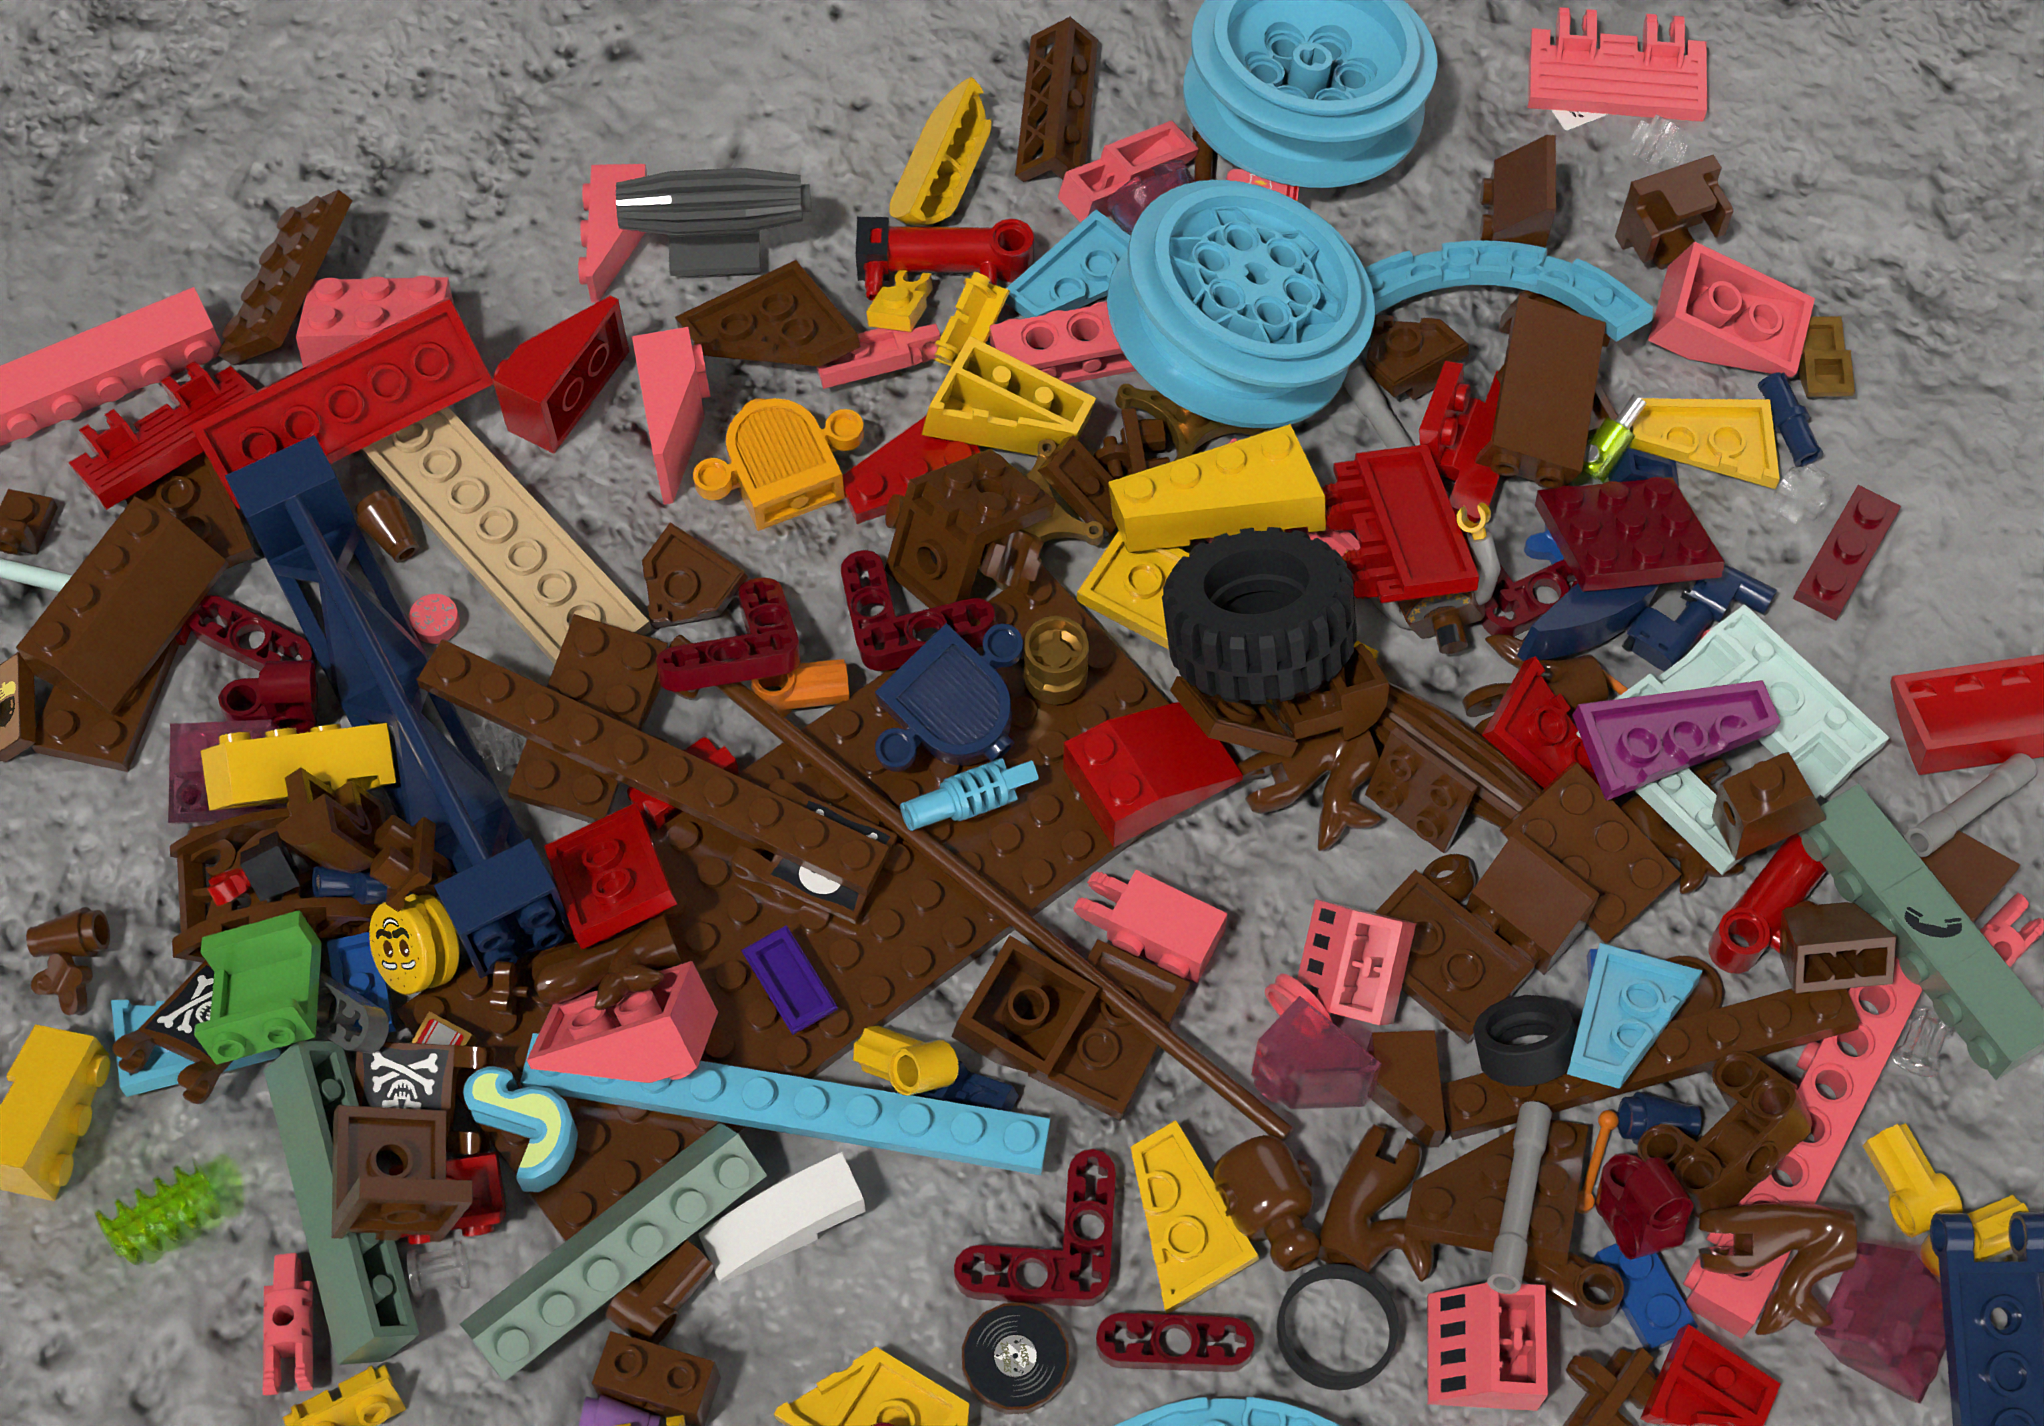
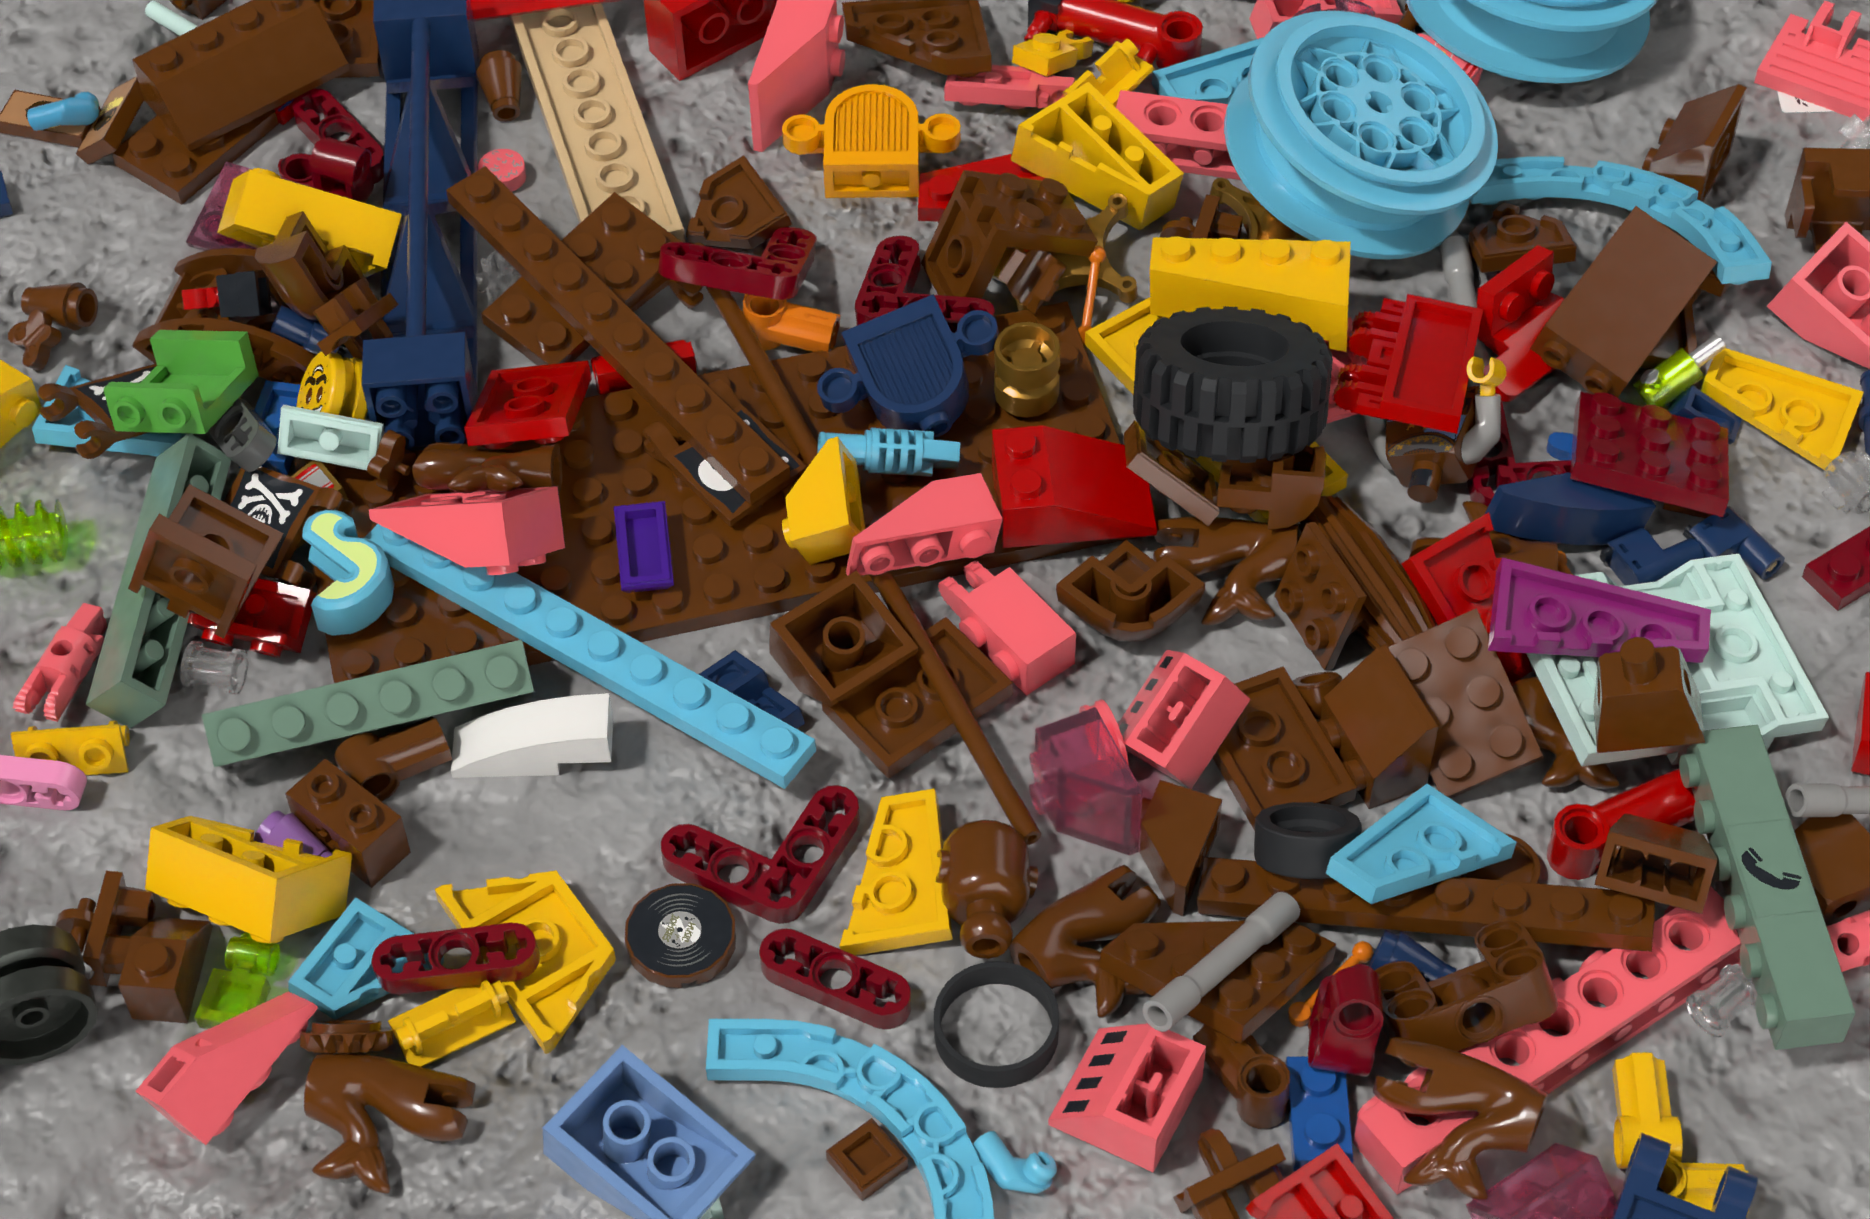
camera: 25 degrees right, 10 degrees down
(438, 991) = (328, 437): none -> light aqua slope
(905, 1061) = (712, 648): yellow piece -> none
(946, 878) = (825, 505): none -> yellow slope
(1060, 849) = (934, 525): none -> coral slope
(1070, 584) = (1096, 258): none -> orange hinge
(1080, 482) = (1130, 234): reddish brown plate -> none
(1253, 851) = (1129, 593): none -> reddish brown brick

